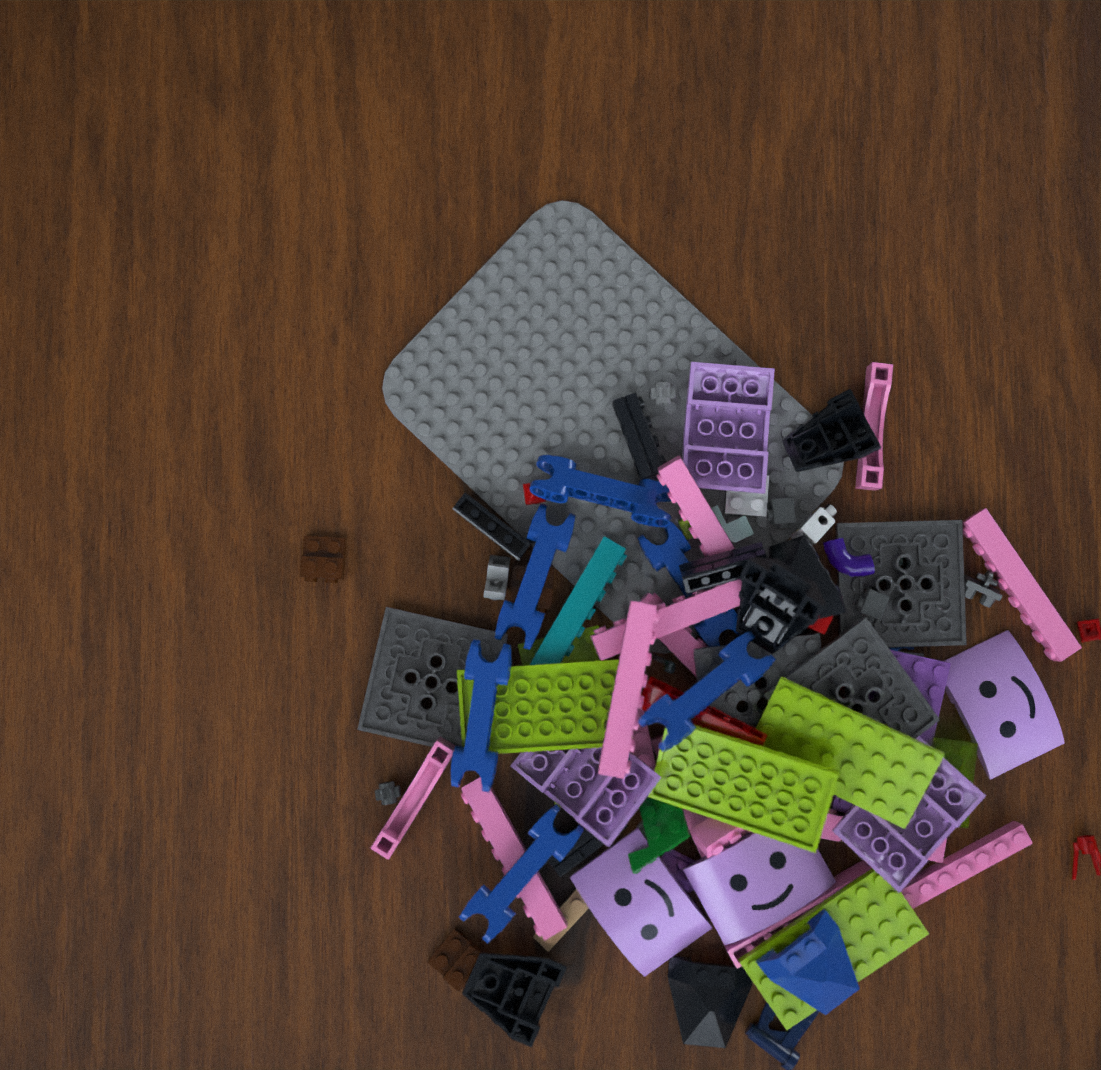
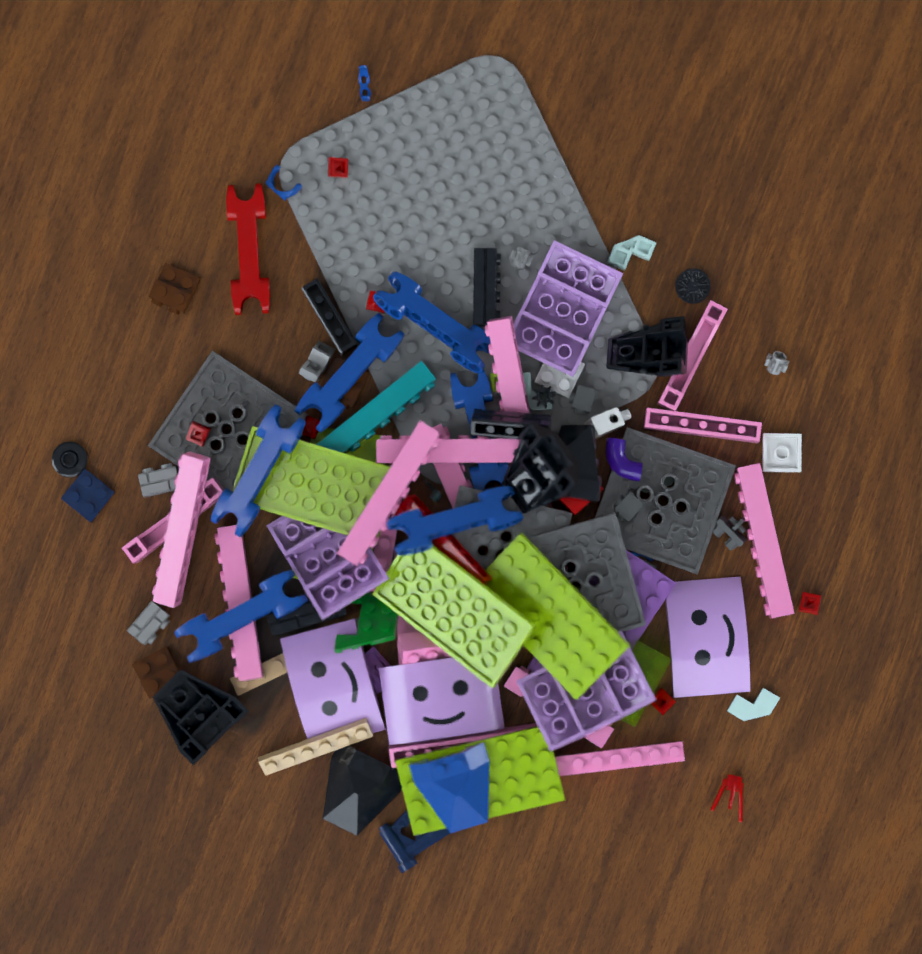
camera: 20 degrees right, 0 degrees up
(282, 774) = (69, 459): none -> black wheel
(315, 803) = (88, 495): none -> dark blue plate
(383, 761) = (158, 481): none -> light grey brick
(388, 793) = (153, 509): dark grey gear -> none
(397, 421) = (284, 195): none -> blue cap
(398, 523) = (246, 215): none -> red piece
(404, 698) = (198, 433): none -> red tile
(424, 805) = (181, 529): none -> bright pink brick
(428, 911) = (149, 623): none -> light grey brick
(432, 268) = (363, 72): none -> blue cap
(442, 372) = (338, 167): none -> red tile
(517, 646) = (310, 427): none -> red tile
(648, 974) = (315, 746): none -> tan plate
(747, 521) = (542, 391): none -> black gear
(773, 337) = (637, 246): none -> light aqua tile
(844, 355) = (692, 286): none -> black wheel
(912, 492) = (702, 425): none -> bright pink brick
(960, 400) = (776, 363): none -> light grey gear
(984, 786) = (663, 701): none -> red tile
(1000, 489) = (781, 452): none -> white plate
(1082, 754) = (762, 706): none -> light aqua tile

